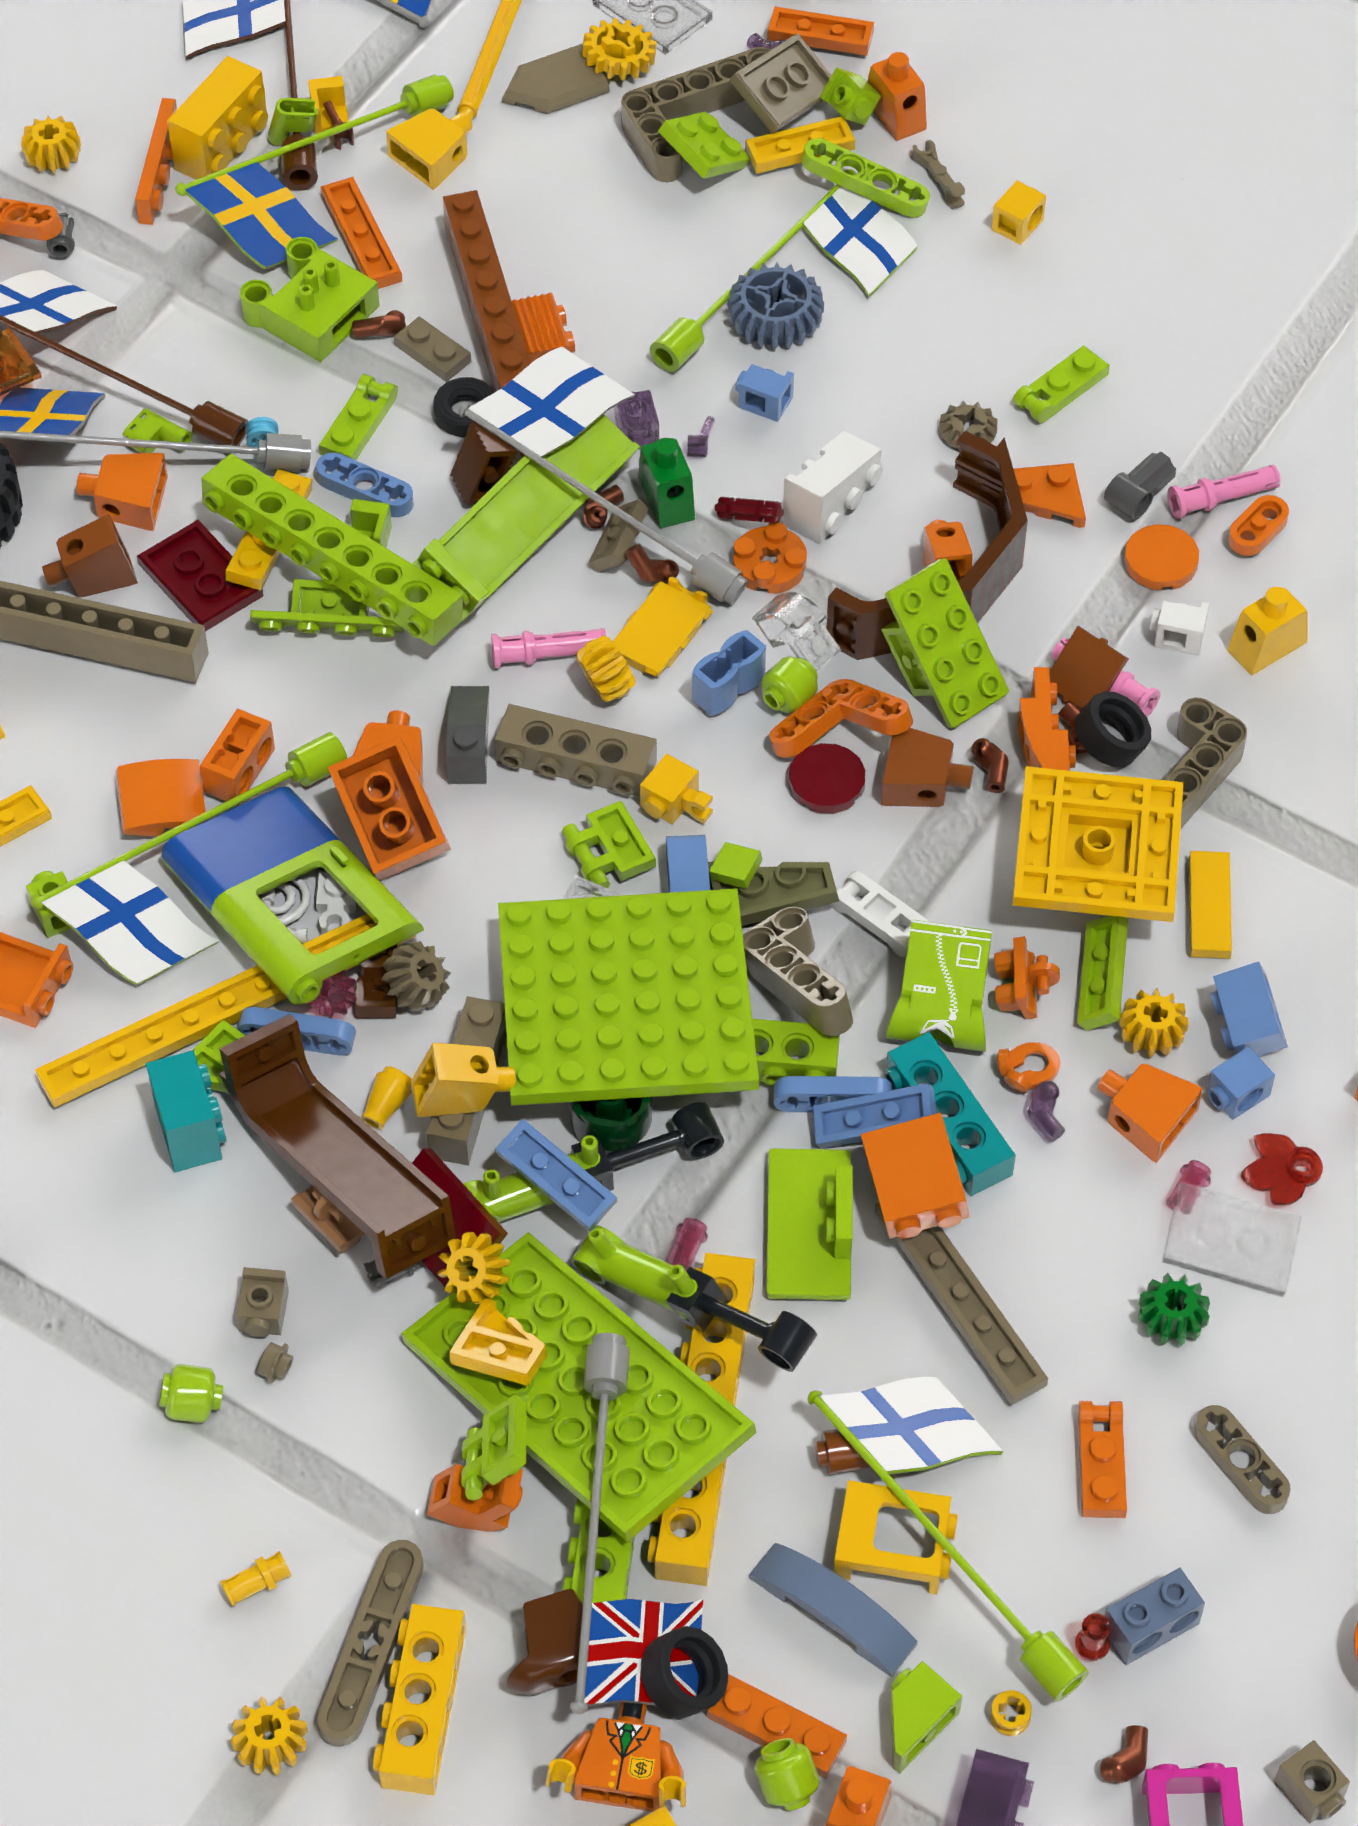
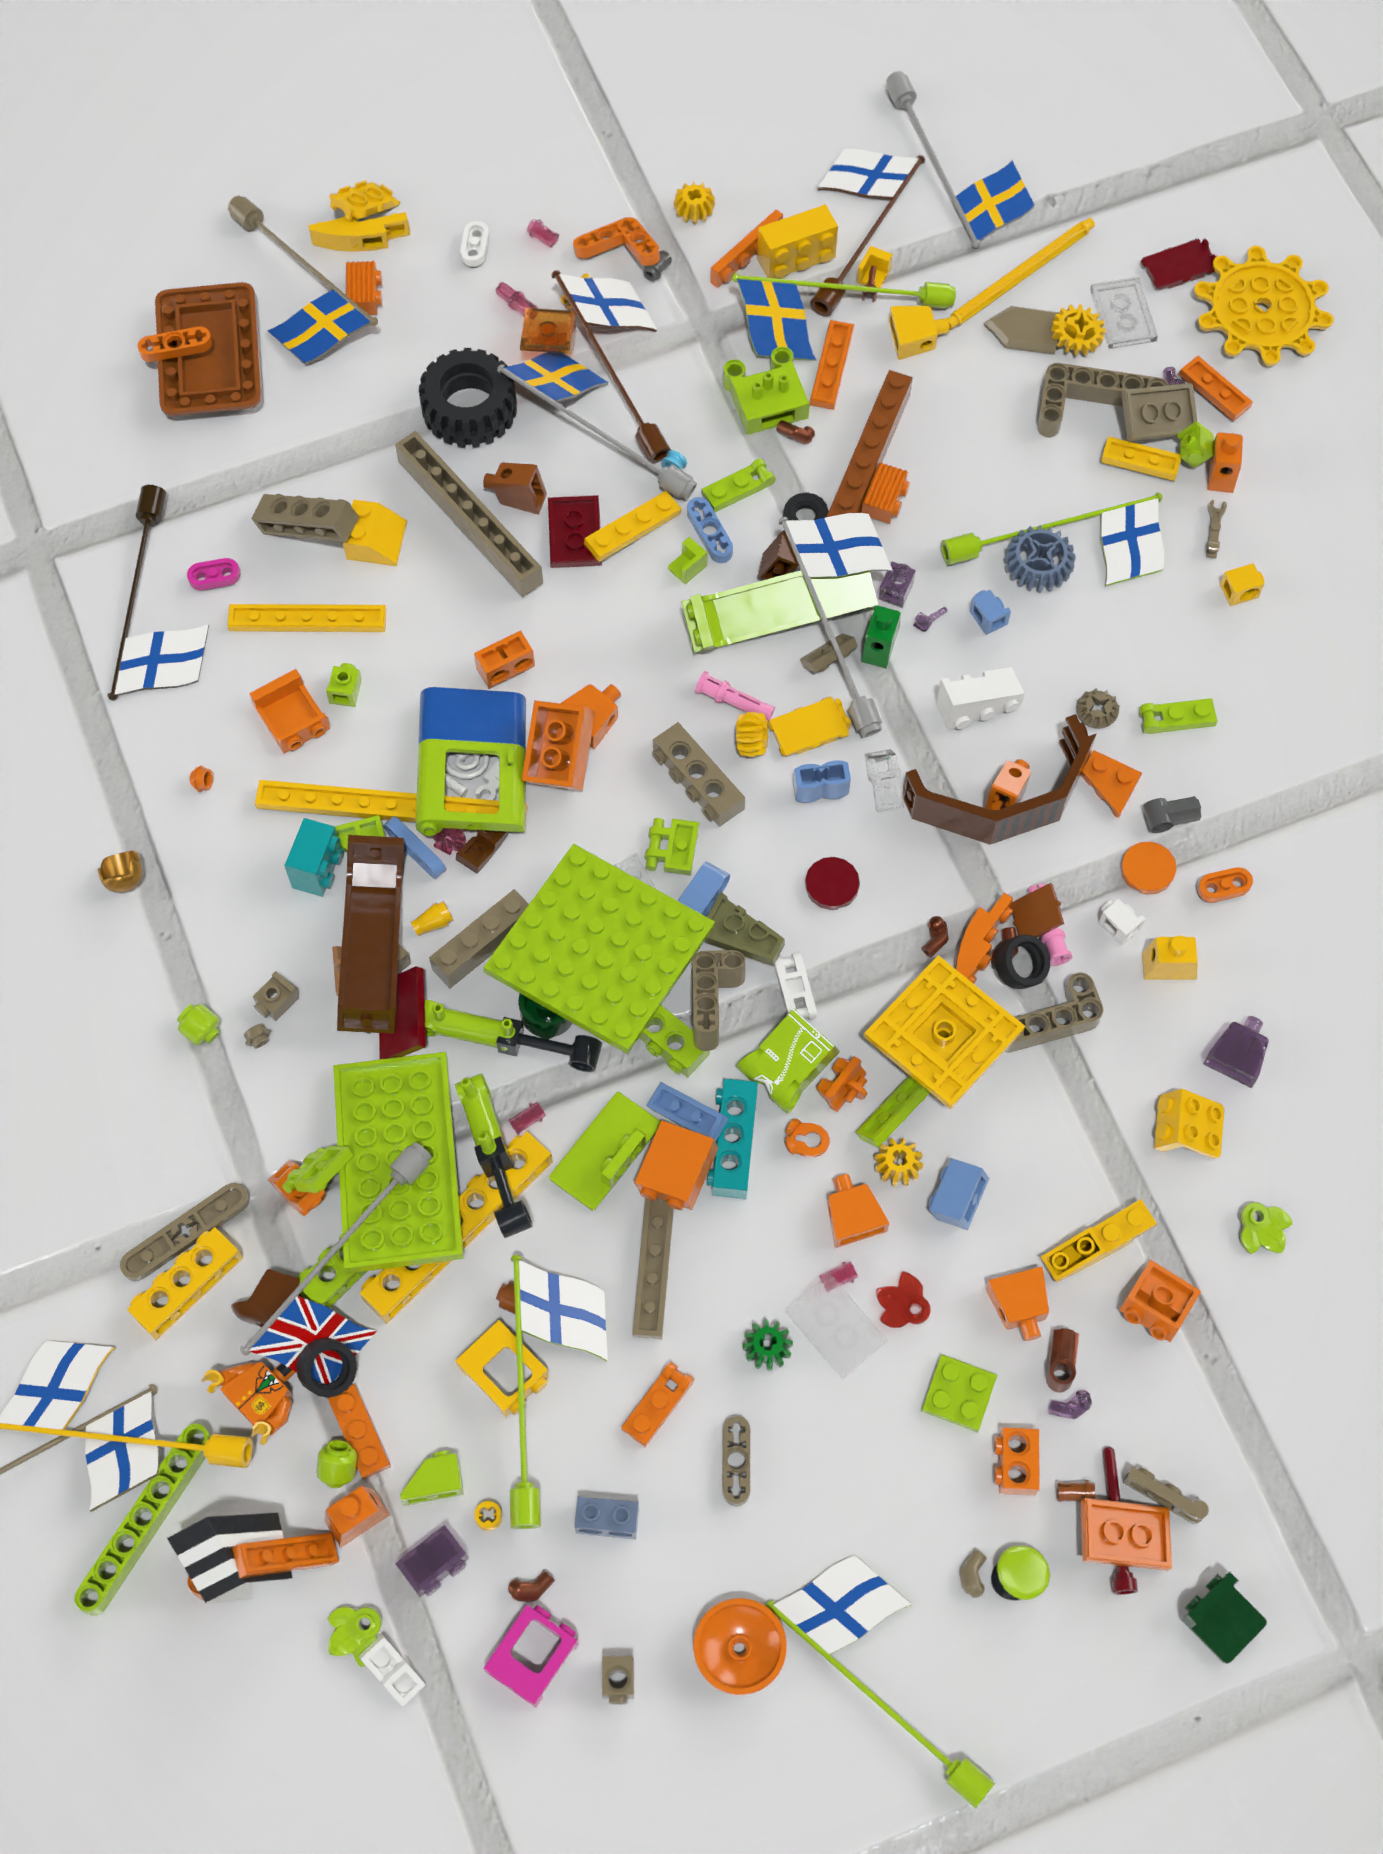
camera: 35 degrees right, 10 degrees up
(127, 488) = (573, 452): orange torso -> none
(130, 917) = (375, 721): flag -> none
(155, 428) = (616, 423): lime piece -> none
(159, 795) = (447, 656): orange slope -> none
(251, 1735) = (92, 1238): yellow gear -> none
(256, 1578) = (156, 1154): yellow pin -> none
(291, 116) = (843, 265): lime piece -> none
(324, 606) = (629, 595): lime bracket -> none
(332, 549) = (634, 506): lime brick -> none
(416, 976) = (490, 853): dark tan gear -> none
(432, 349) = (816, 465): dark tan plate -> none
(458, 1079) = (450, 939): yellow torso -> none
(467, 735) = (646, 724): dark grey slope -> none
(485, 1259) = (390, 1055): yellow gear -> none
(498, 1346) = (369, 1110): yellow wing -> none
(556, 1175) = (477, 1030): medium blue plate -> none
(594, 513) = (836, 624): copper arm -> none
(651, 569) = (832, 686): copper arm -> none
(672, 789) = (733, 834): yellow brick -> none
(704, 144) = (1077, 425): lime plate -> none
(735, 865) = (731, 905): lime tile -> none
(749, 509) = (918, 683): dark red axle -> none
(776, 542) = (912, 708): orange plate -> none
(789, 684) = (852, 810): lime head -> none
(803, 1092) = (671, 1076): medium blue beam -> none
(834, 703) = (879, 841): orange beam -> none
(837, 1604) = (441, 1386): sand blue slope -> none
(867, 174) = (1158, 507): lime beam -> none
(921, 770) = (888, 913): dark orange torso -> none
(942, 644) = (958, 844): lime bracket -> none
(1041, 1110) = (792, 1171): clear purple arm -> none
(1093, 1639) = (564, 1514): clear red pin -> none
(1209, 493) = (1209, 844): bright pink pin -> none
(1210, 904) = (996, 1109): yellow tile -> none
(1240, 1083) = (918, 1233): medium blue brick -> none

